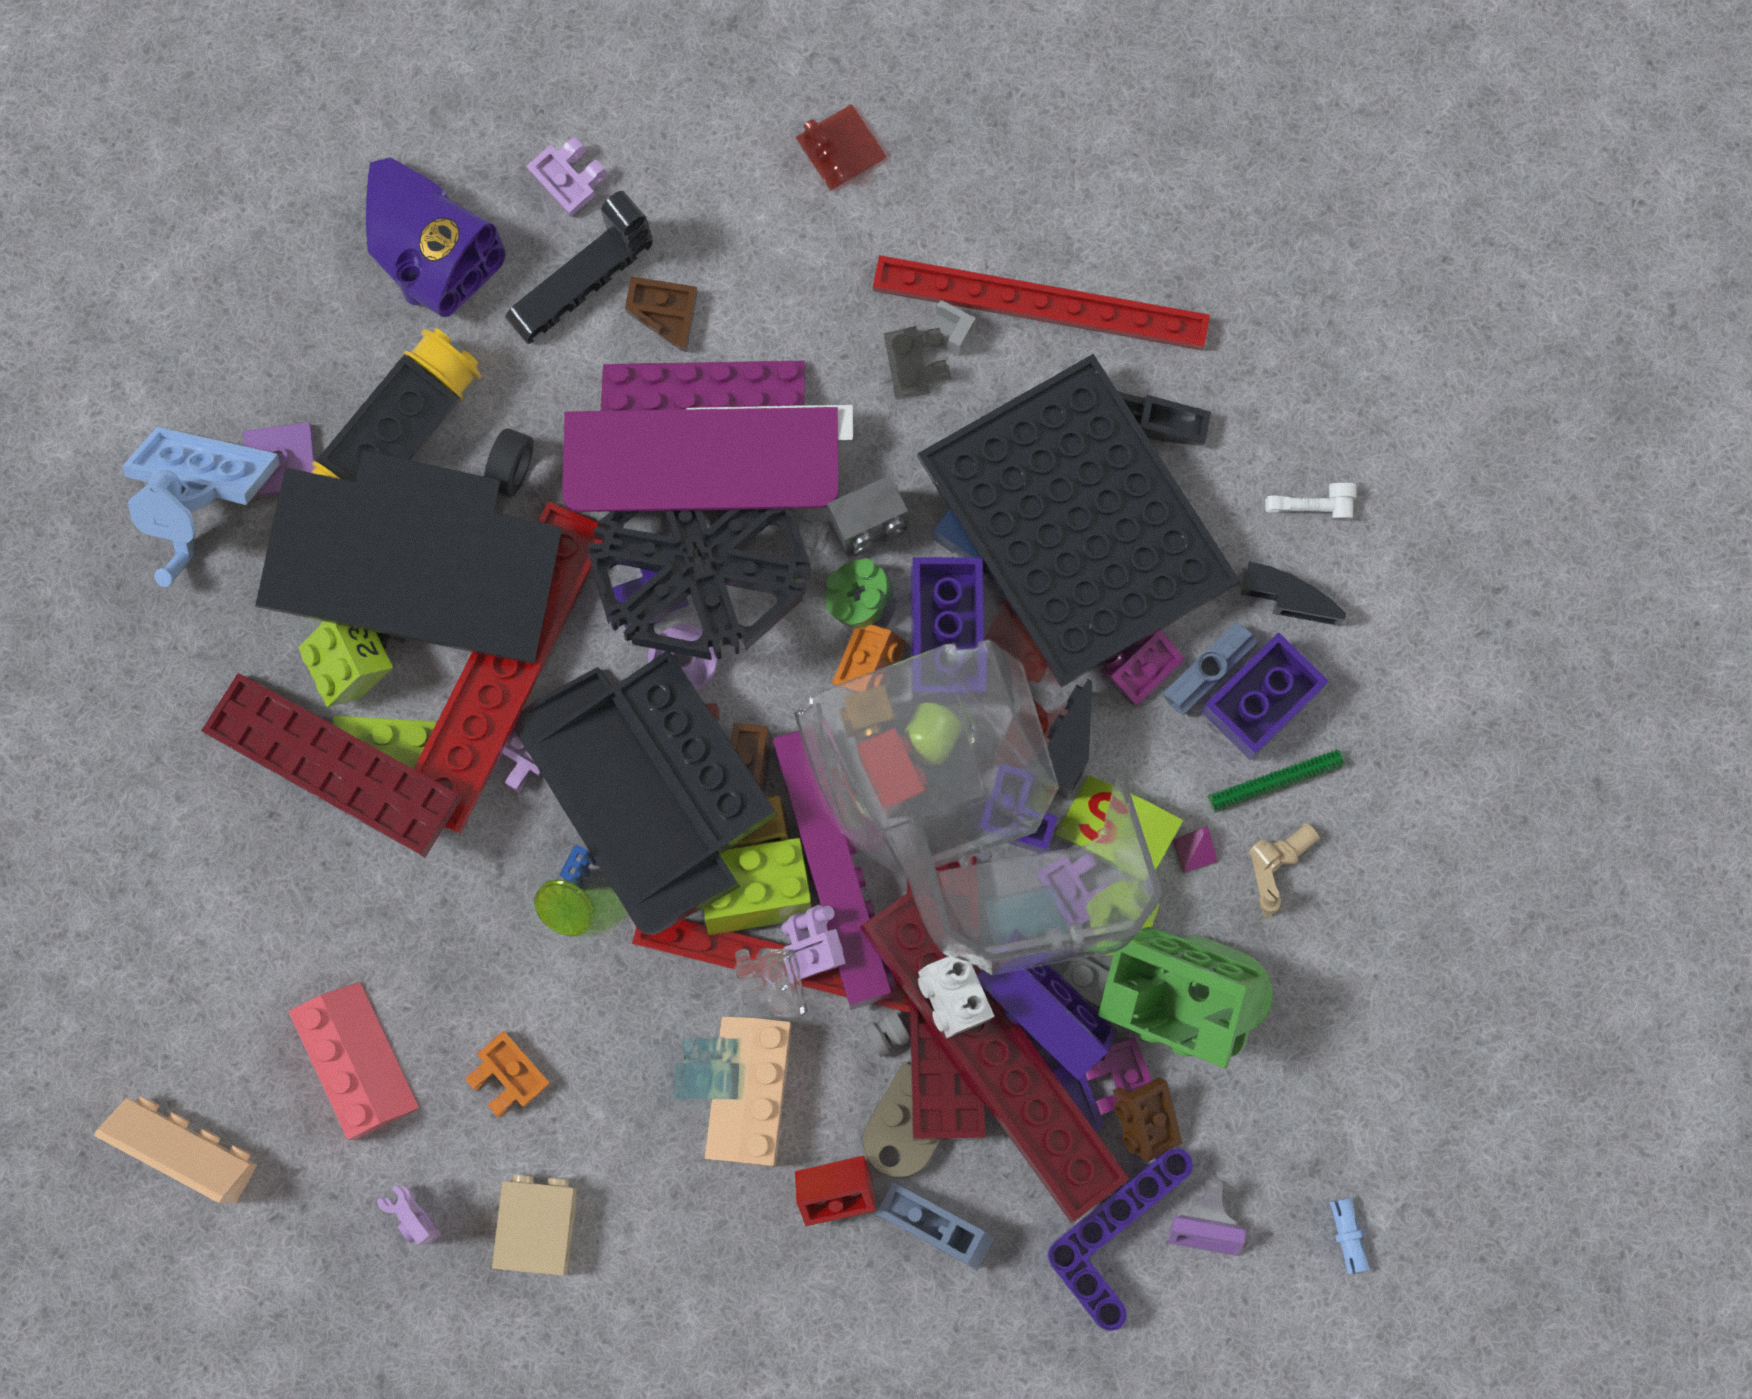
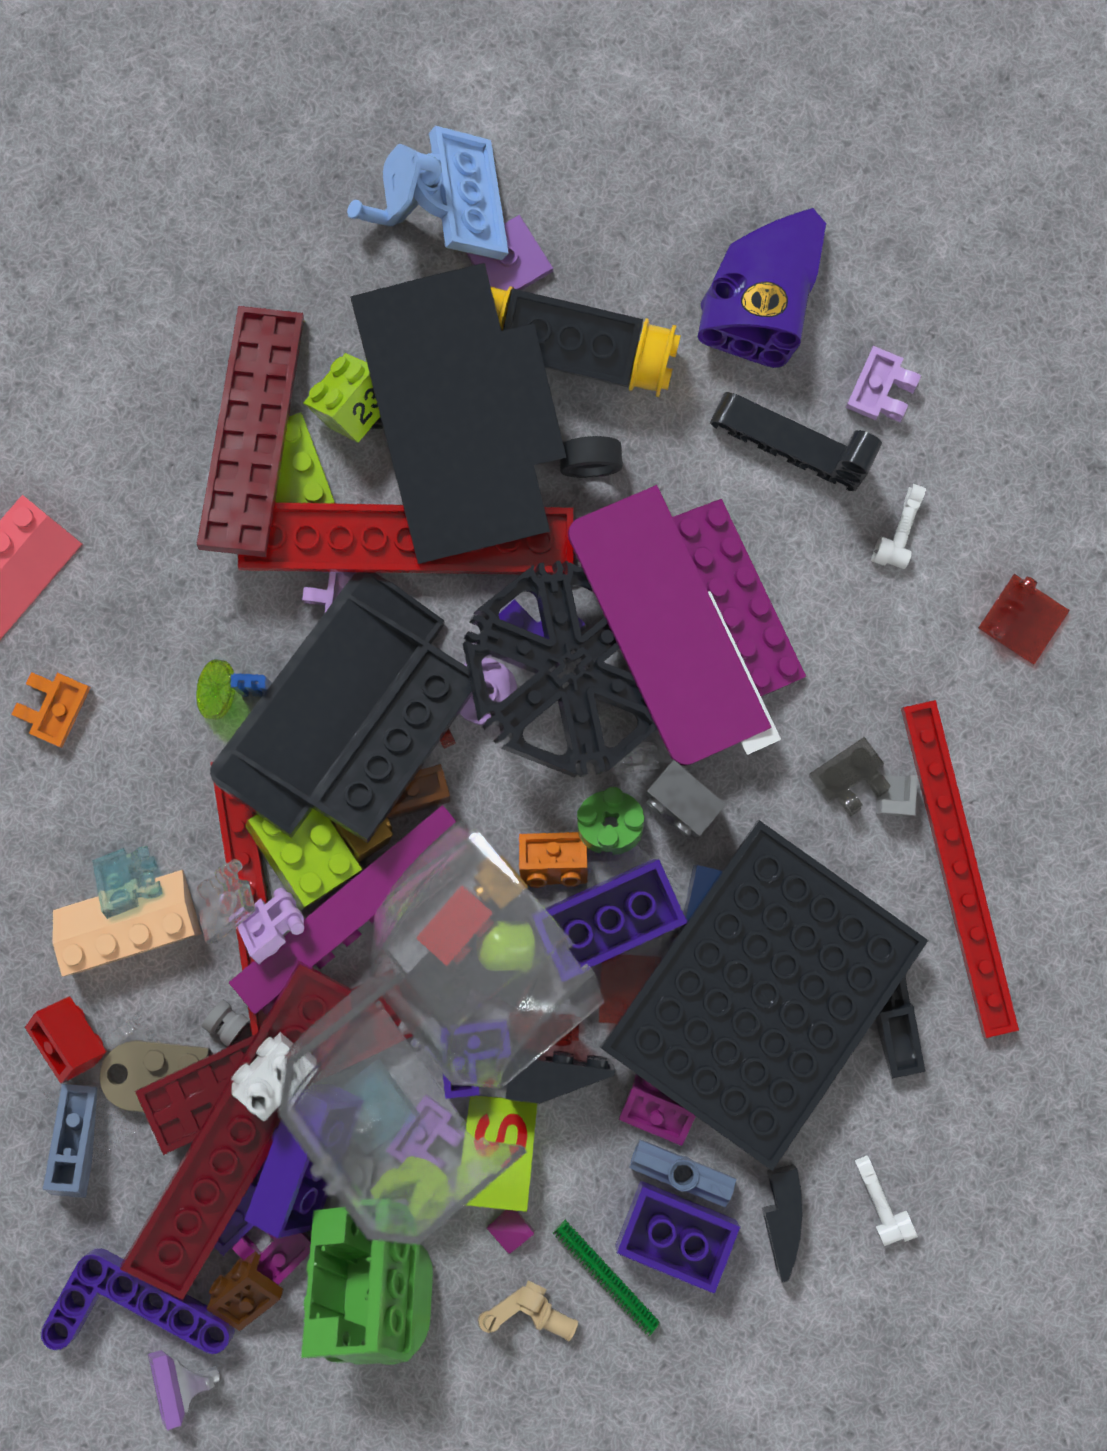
camera: 60 degrees right, 5 degrees up
(663, 308) = (797, 528): reddish brown wing -> none
(724, 232) = (894, 551): none -> white brick

